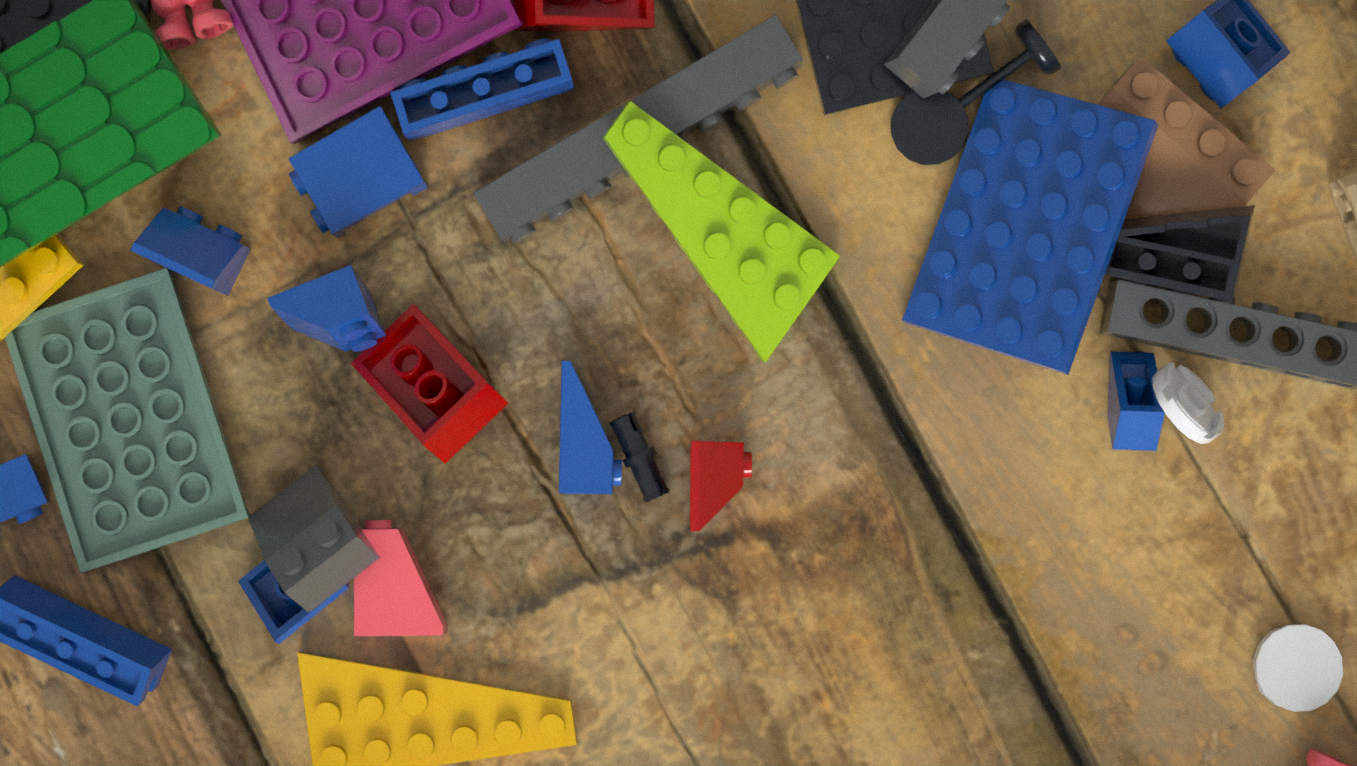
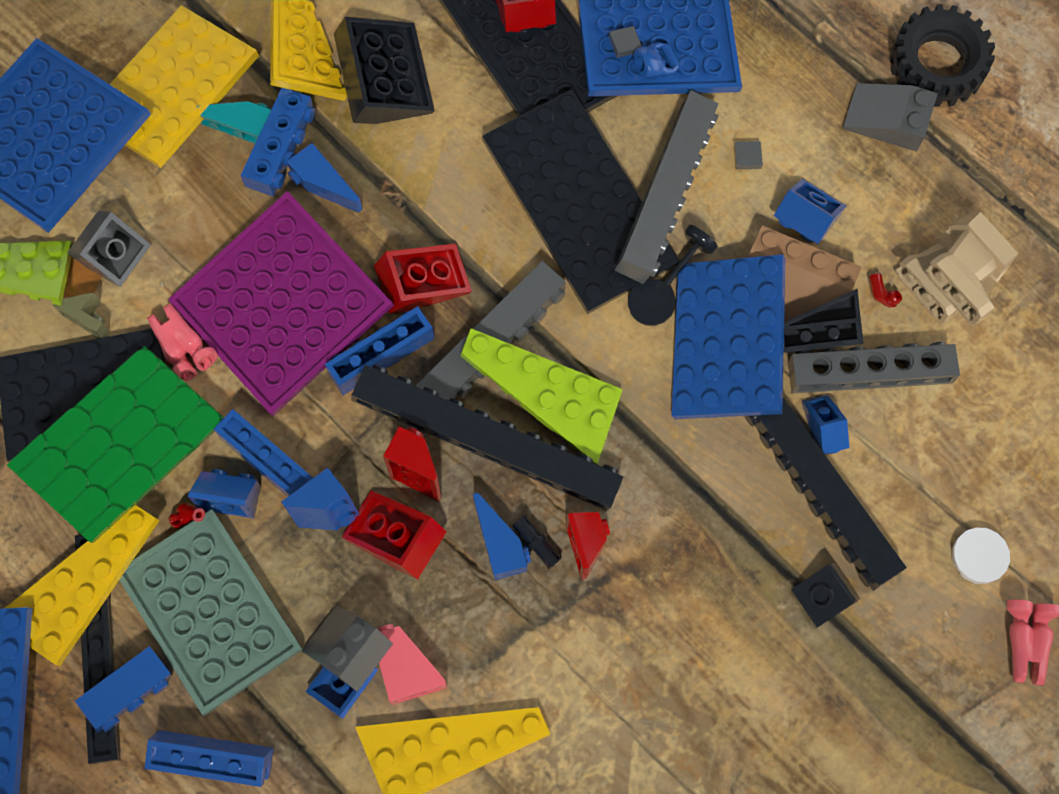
camera: 15 degrees left, 15 degrees down
(125, 264) = (186, 513): none -> red arm
(263, 208) = (261, 453): none -> blue brick
(355, 172) = (315, 420): blue panel -> none
(483, 286) = (411, 463): none -> red slope
(605, 279) = (486, 437): none -> black brick
(1045, 658) = (825, 594): none -> black piece
(1099, 516) = (828, 496): none -> black brick
(1188, 403) = (858, 413): white tile -> none
(1294, 216) = (881, 294): none -> red arm

